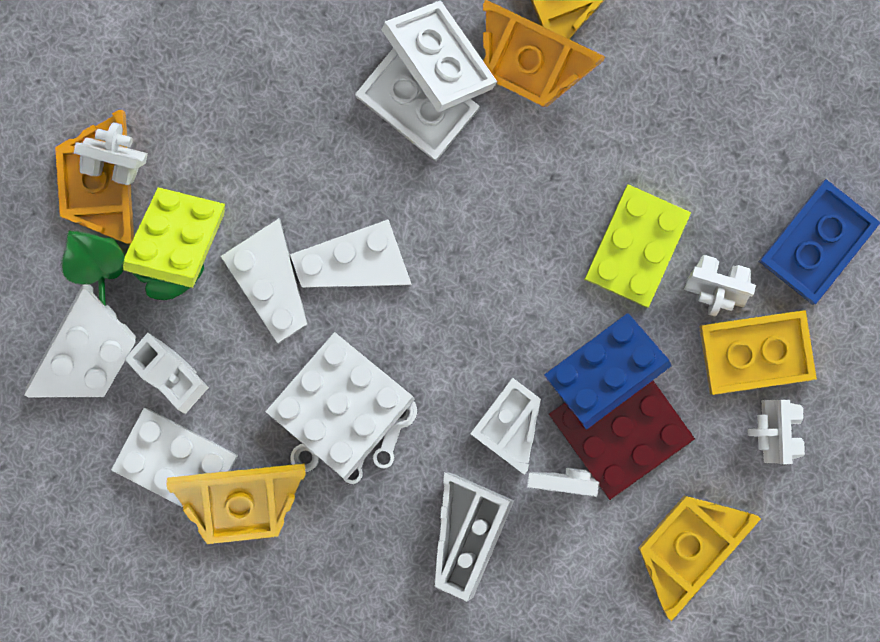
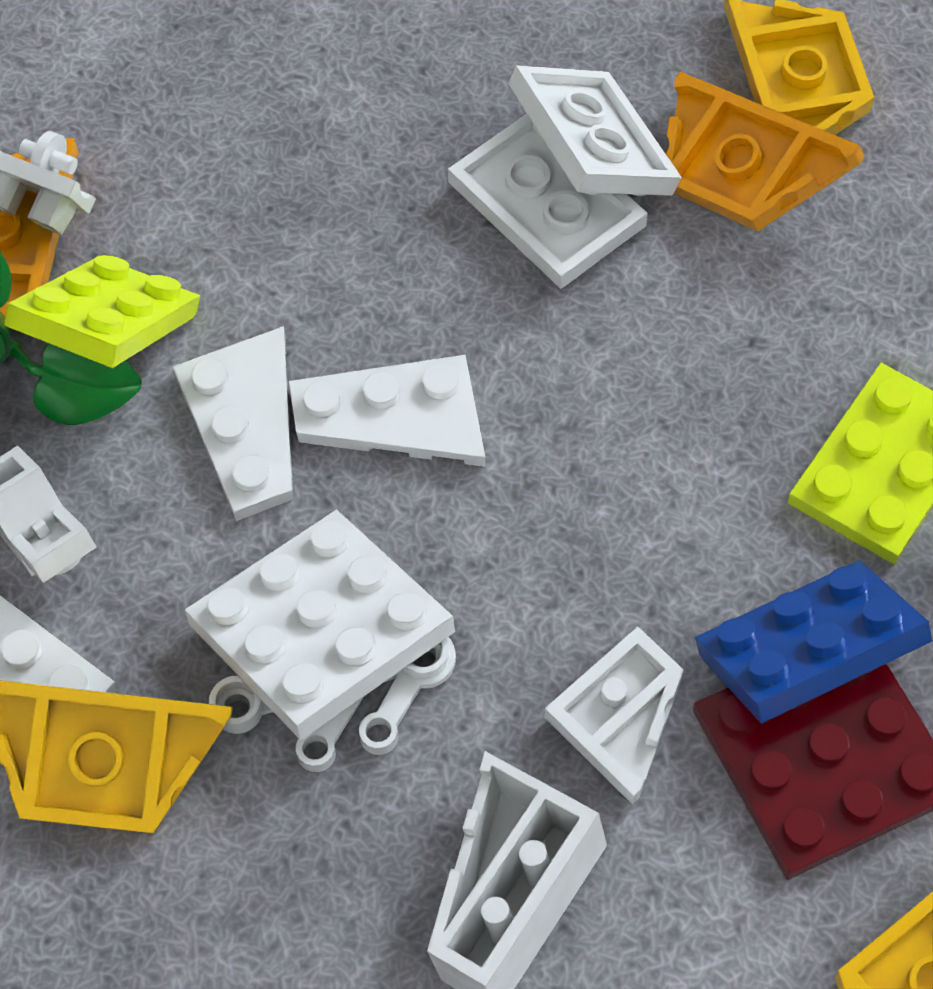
camera: 10 degrees right, 25 degrees down
(573, 481) = (708, 808): white wing -> none

